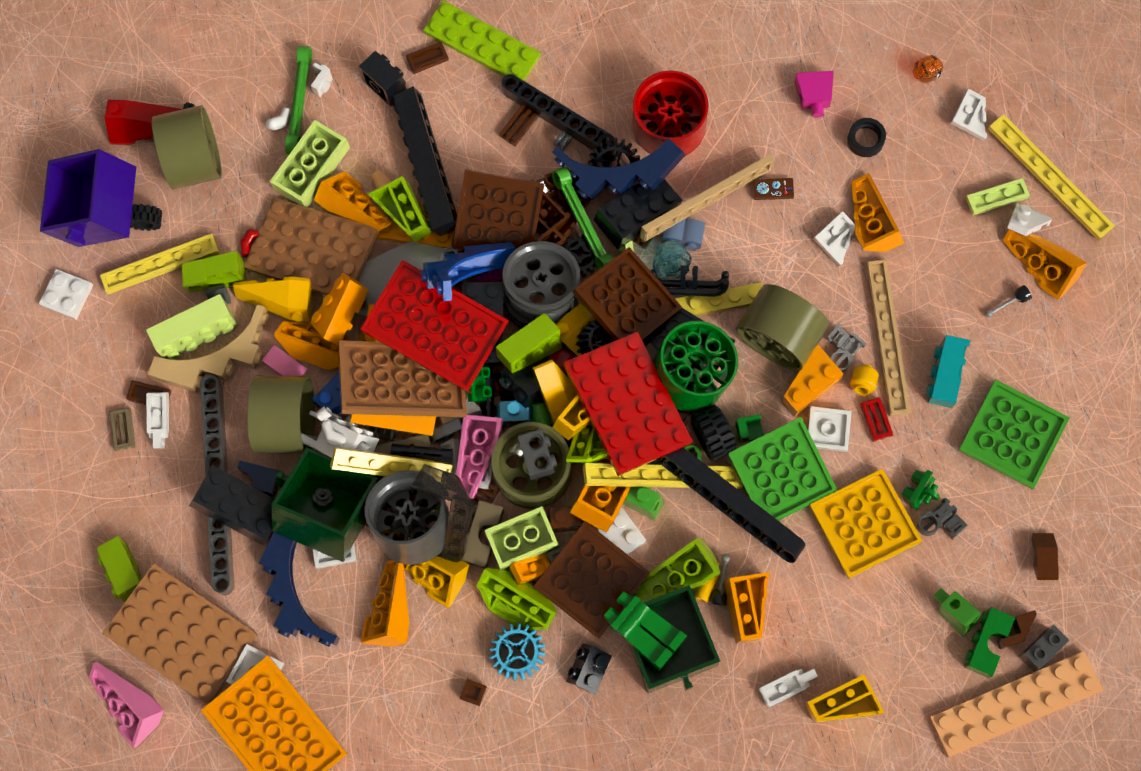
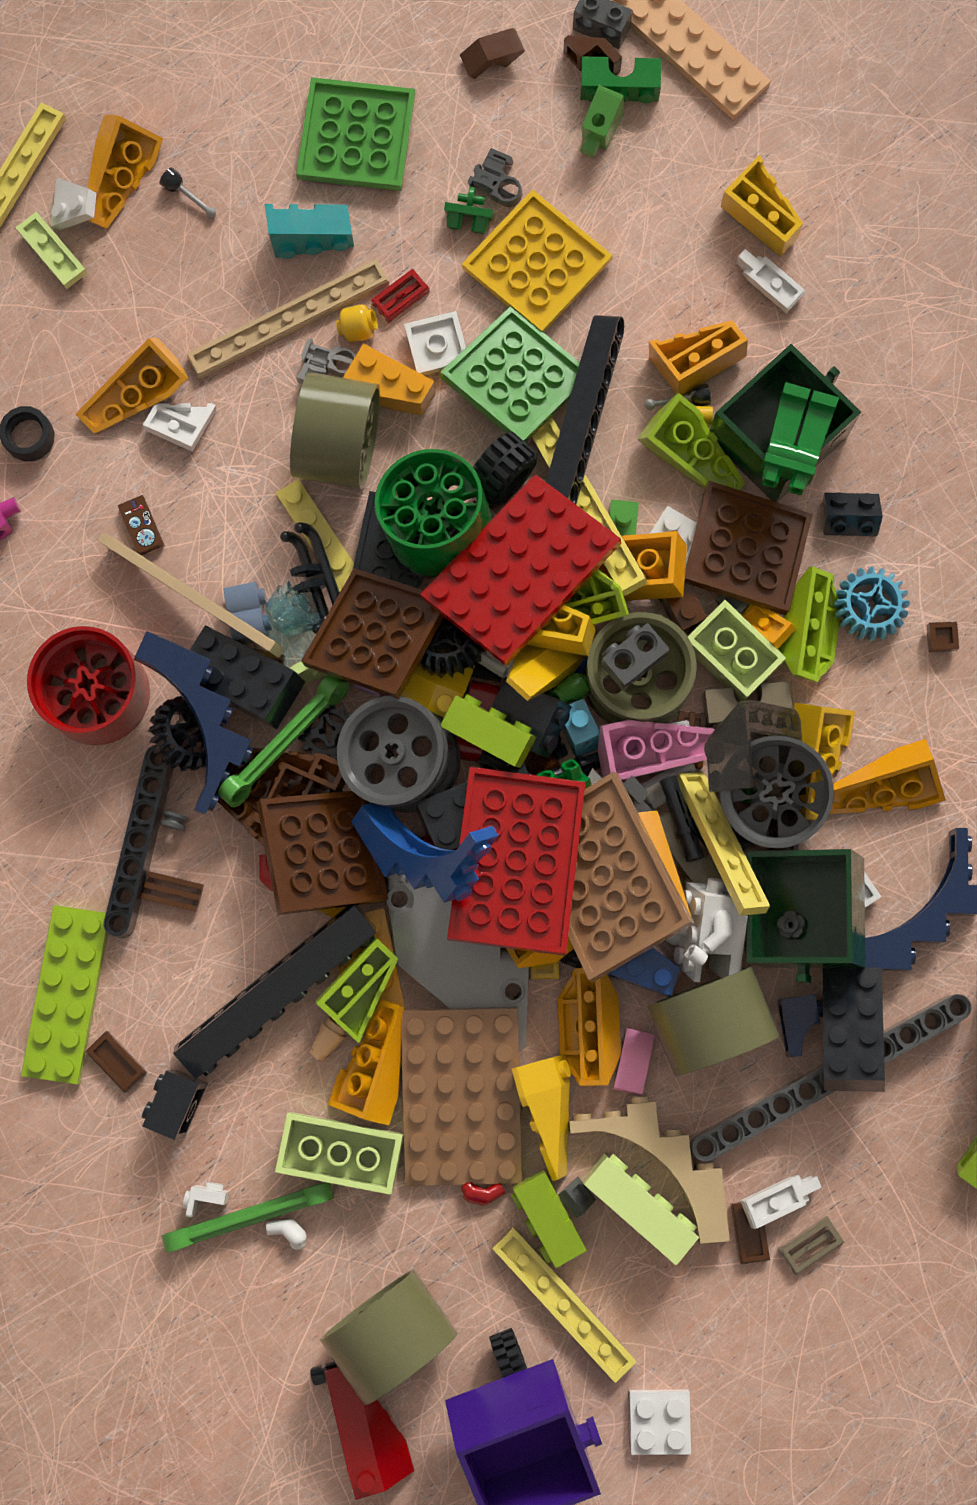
camera: 115 degrees left, 5 degrees up
(338, 308) = (539, 1009): light orange wedge -> none
(749, 428) = (474, 437): green panel -> none

